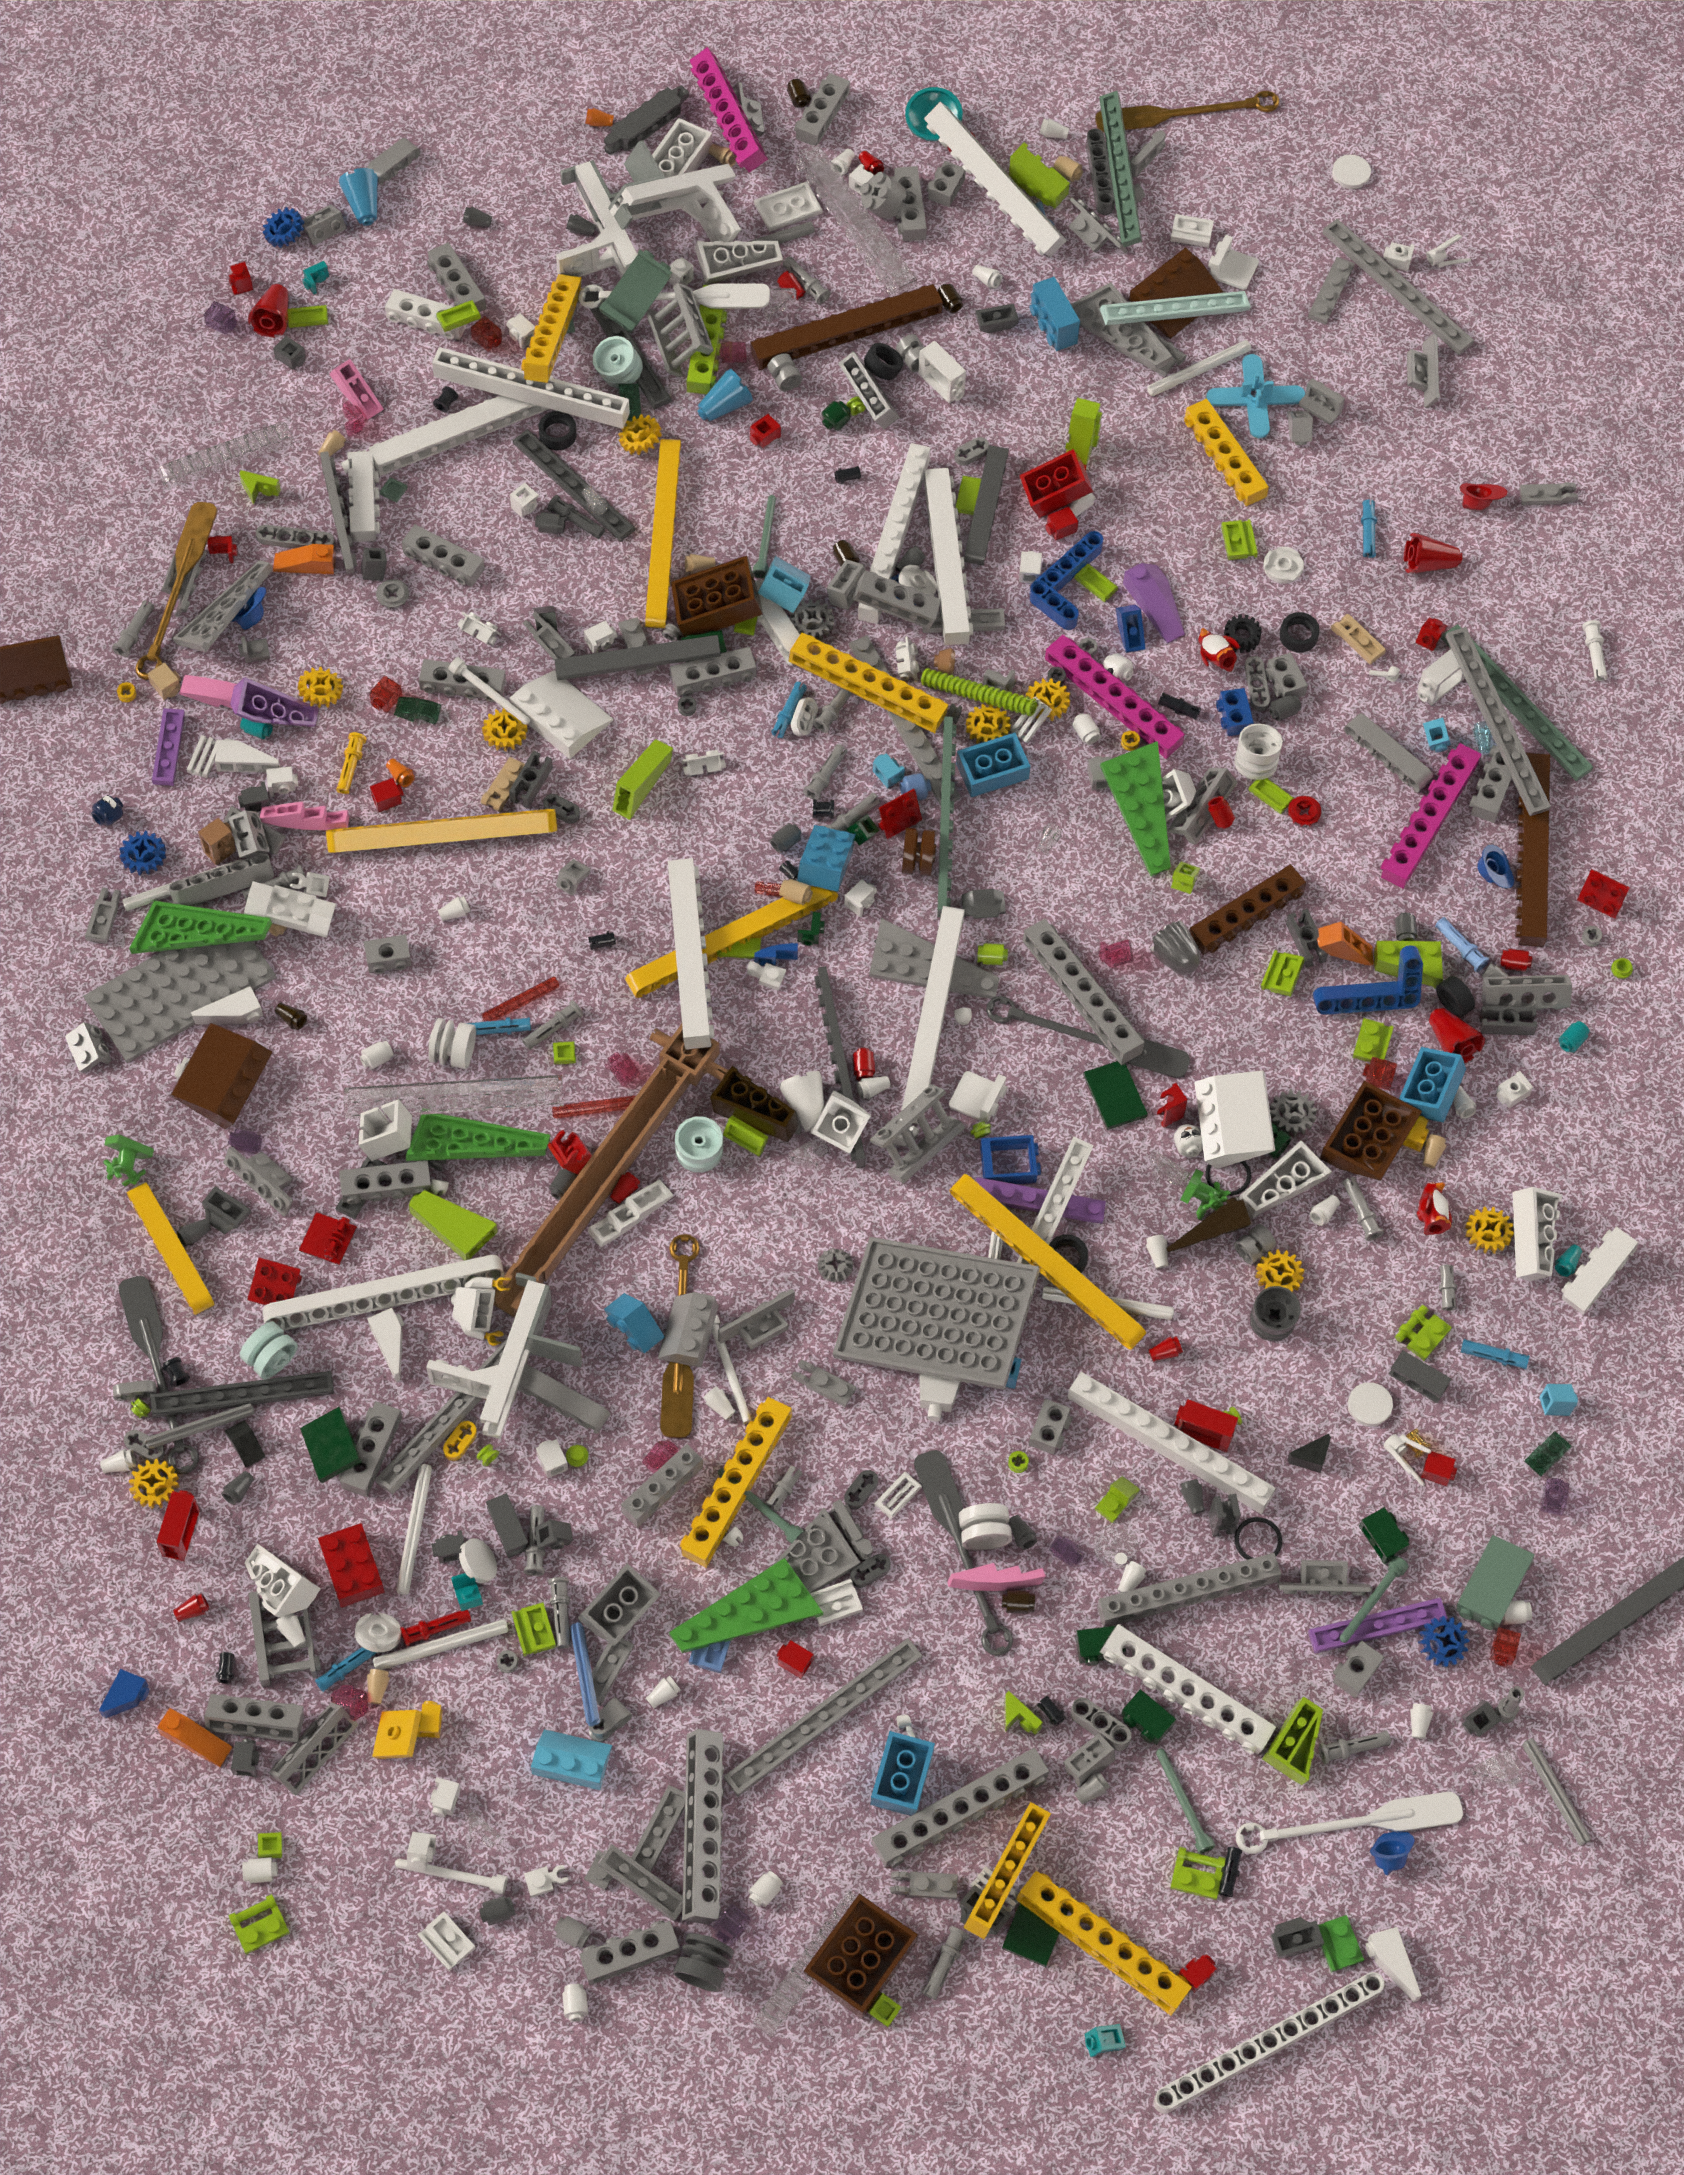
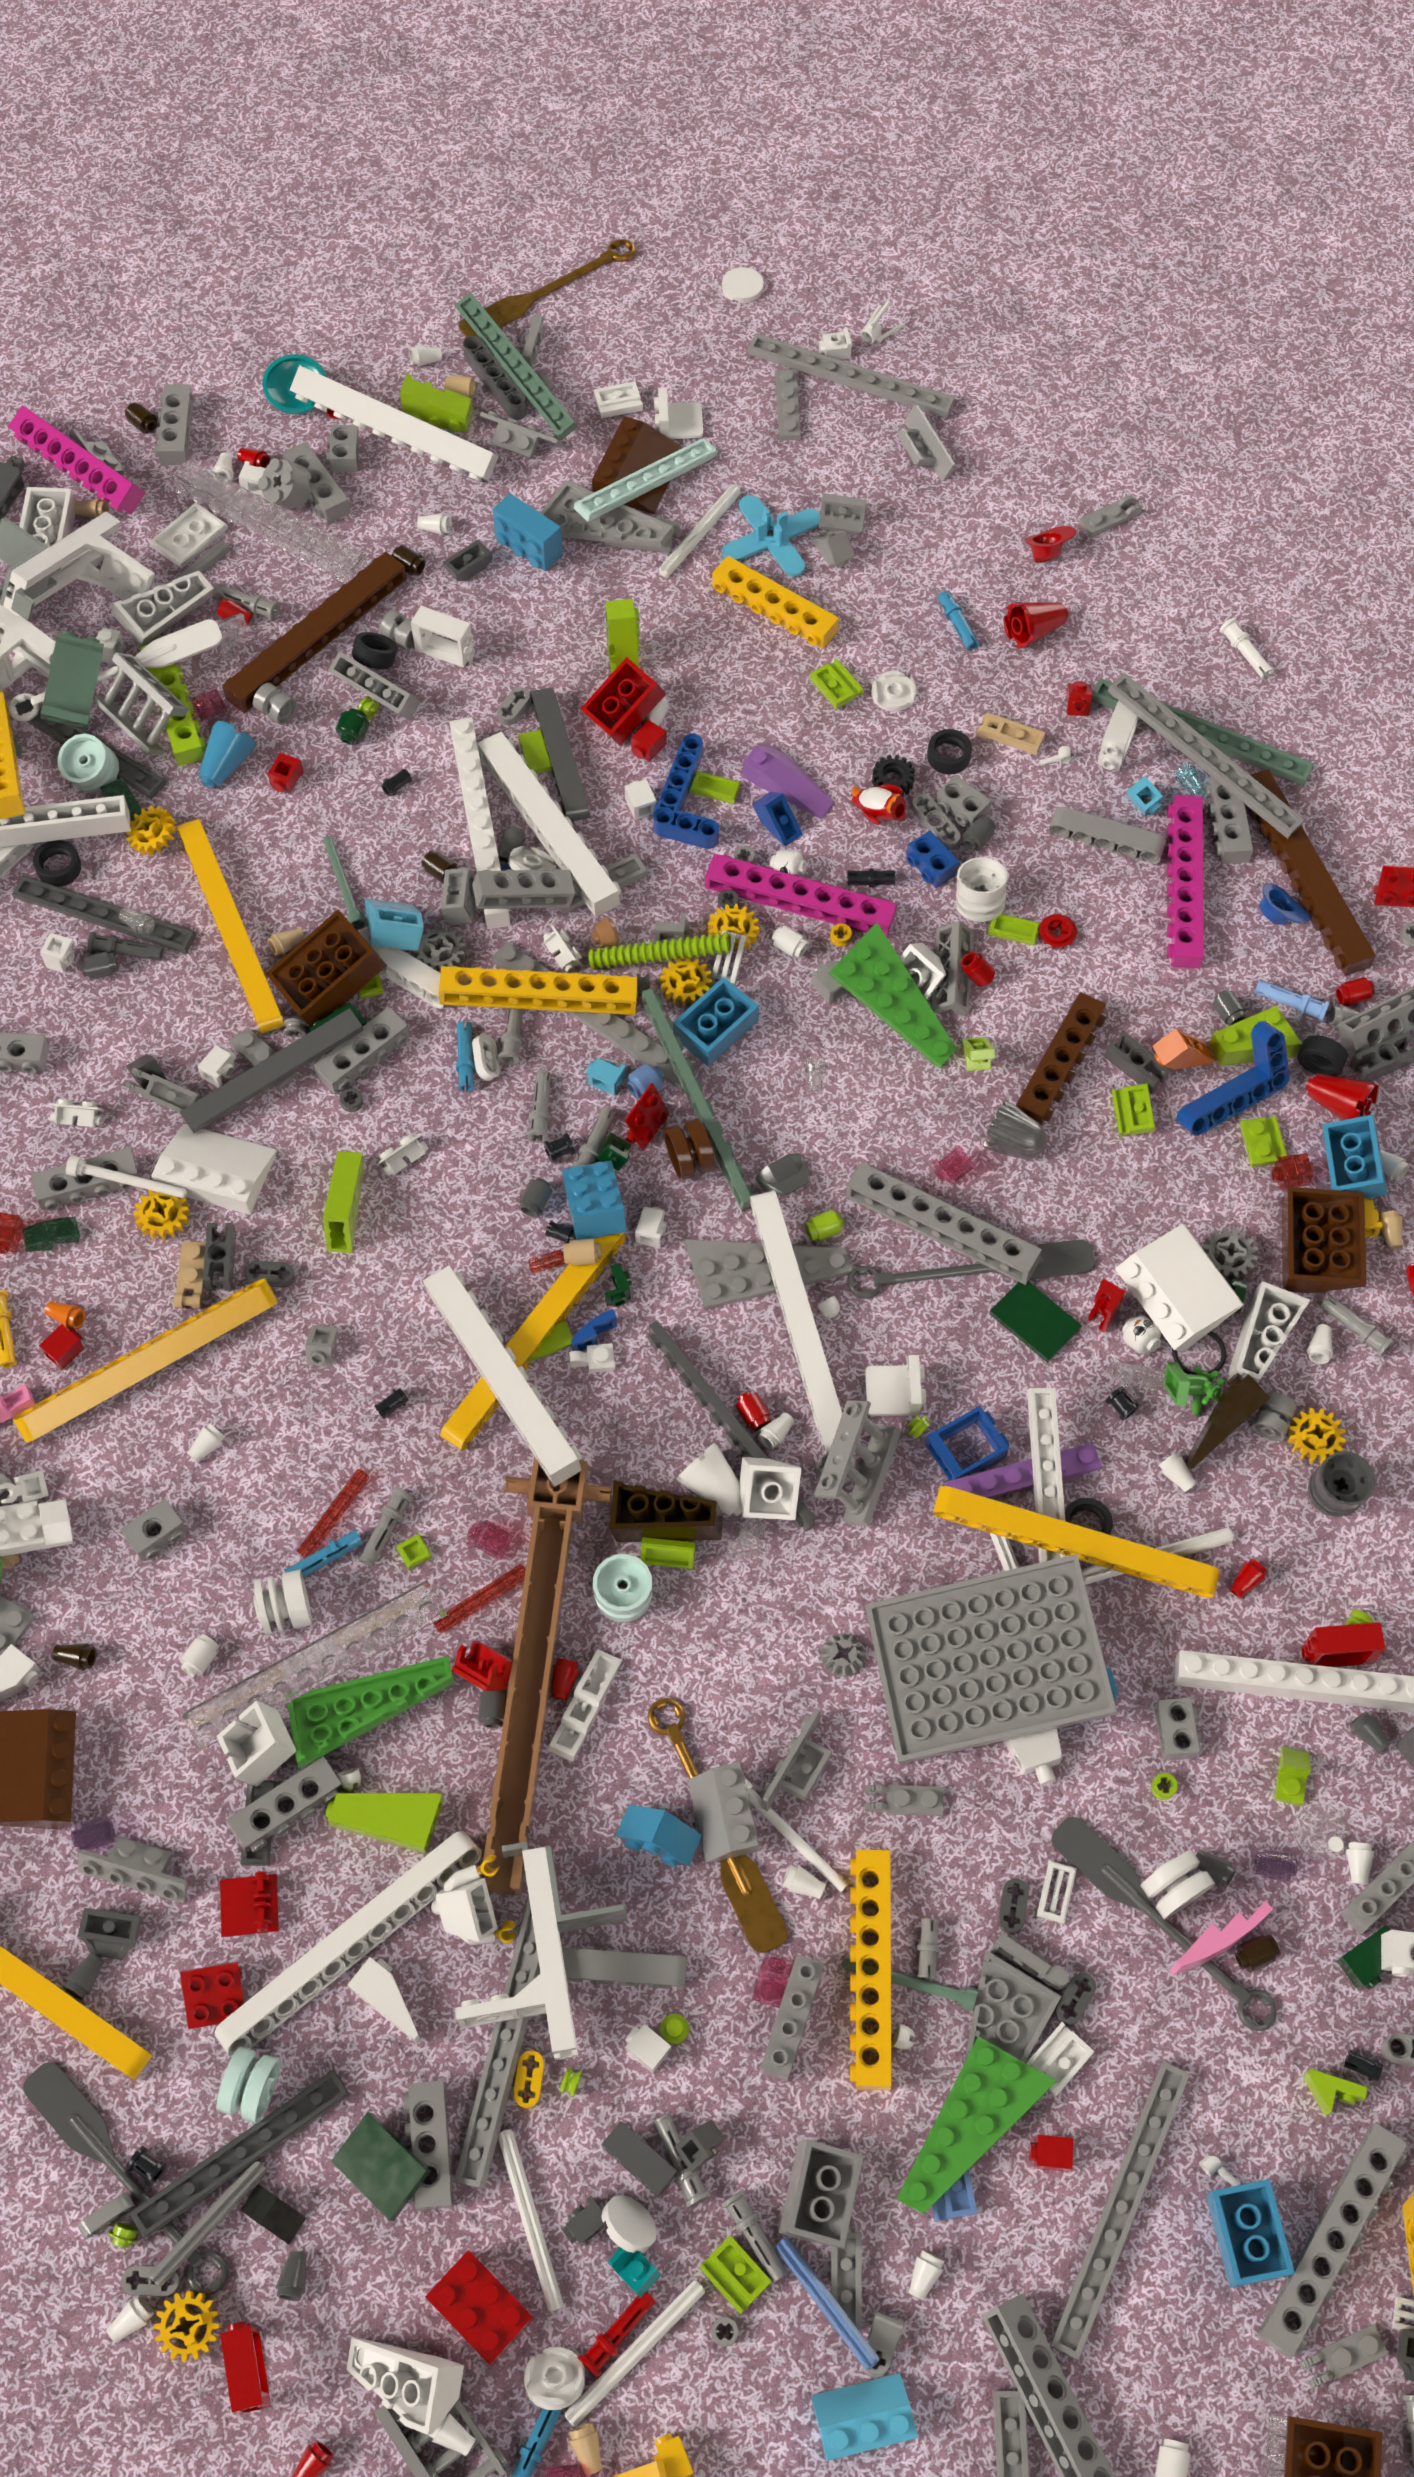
camera: 25 degrees left, 0 degrees up
(1145, 1183) = (1122, 1403): none -> black bush

